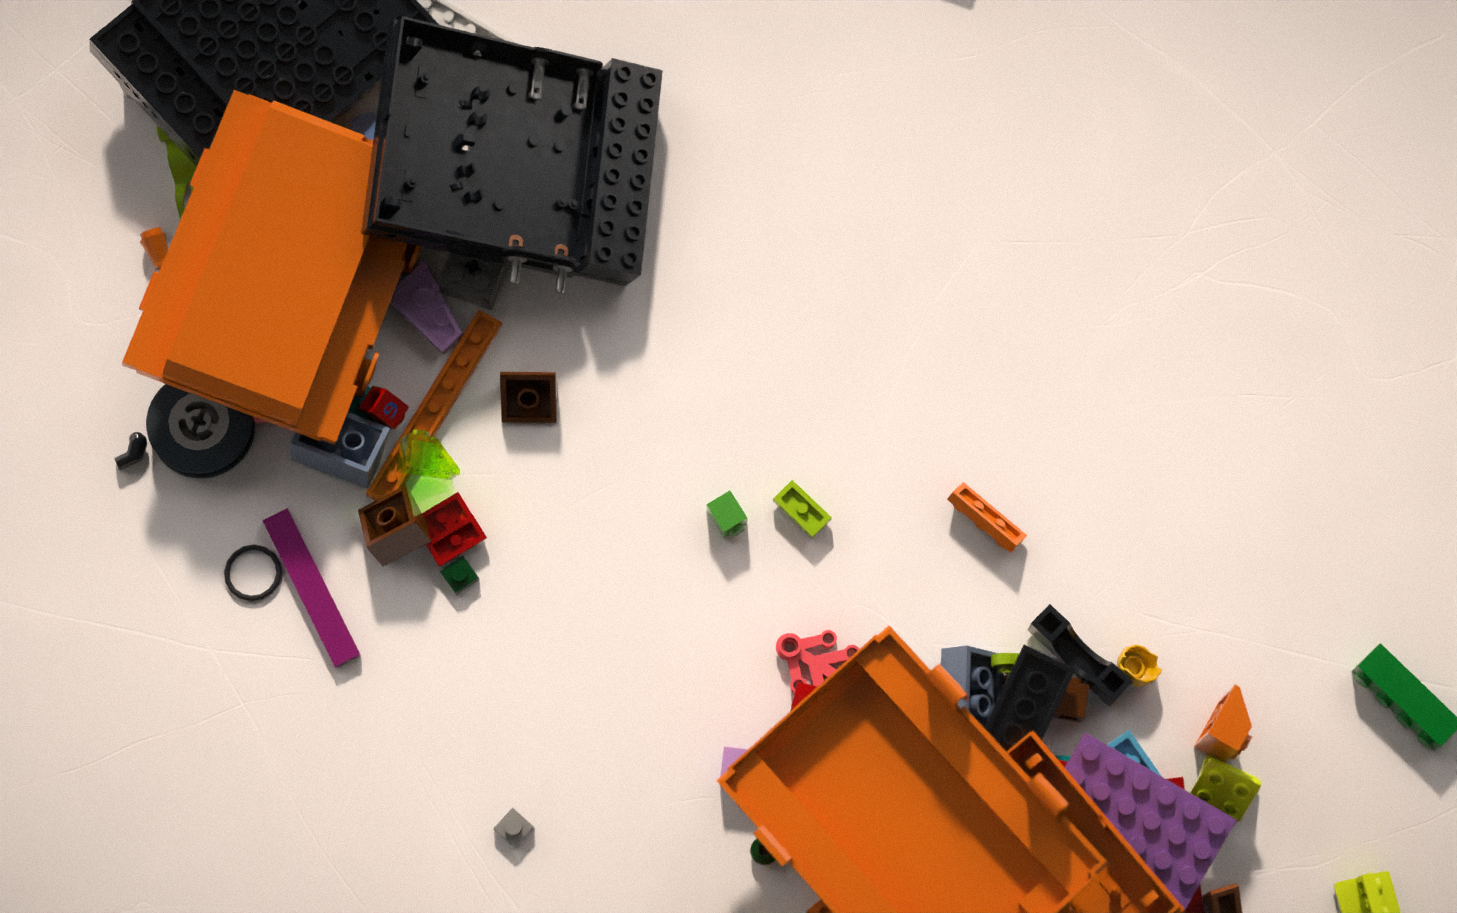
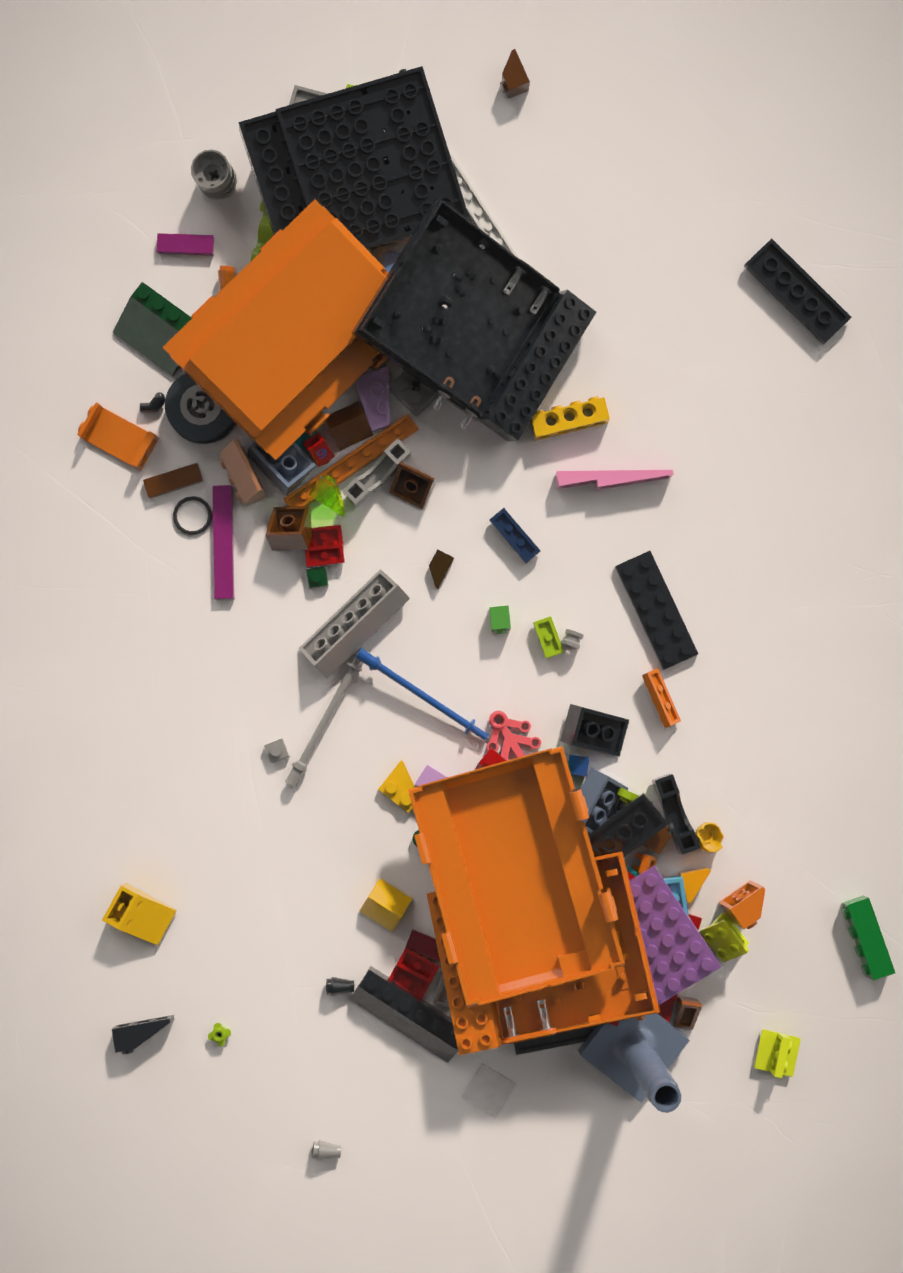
camera: 30 degrees right, 10 degrees up
(69, 112) = (213, 174): none -> light grey wheel
(79, 228) = (185, 244): none -> magenta tile
(84, 352) = (149, 324): none -> dark green slope
(104, 516) = (117, 436): none -> orange panel
(205, 538) = (173, 480): none -> reddish brown tile
(295, 485) = (241, 473): none -> nougat slope
(409, 360) = (349, 426): none -> reddish brown slope
(481, 392) = (383, 469): none -> light grey arch
(537, 610) = (354, 623): none -> light grey slope
(555, 833) = (300, 765): none -> light grey bar
(592, 648) = (375, 664): none -> blue bar
(615, 485) = (439, 567): none -> dark brown tile
(665, 250) = (596, 405): none -> yellow brick
(694, 399) = (514, 535): none -> dark blue plate
(703, 798) = (397, 786): none -> yellow wing
(781, 271) = (609, 478): none -> bright pink slope
(834, 496) = (572, 639): none -> light grey wheel
(921, 598) = (594, 730): none -> black slope
(925, 409) = (656, 610): none -> black plate
(926, 652) = (578, 765): none -> blue slope
(1072, 735) = (646, 862): none -> orange tile
(1147, 732) = (693, 881): none -> light orange slope

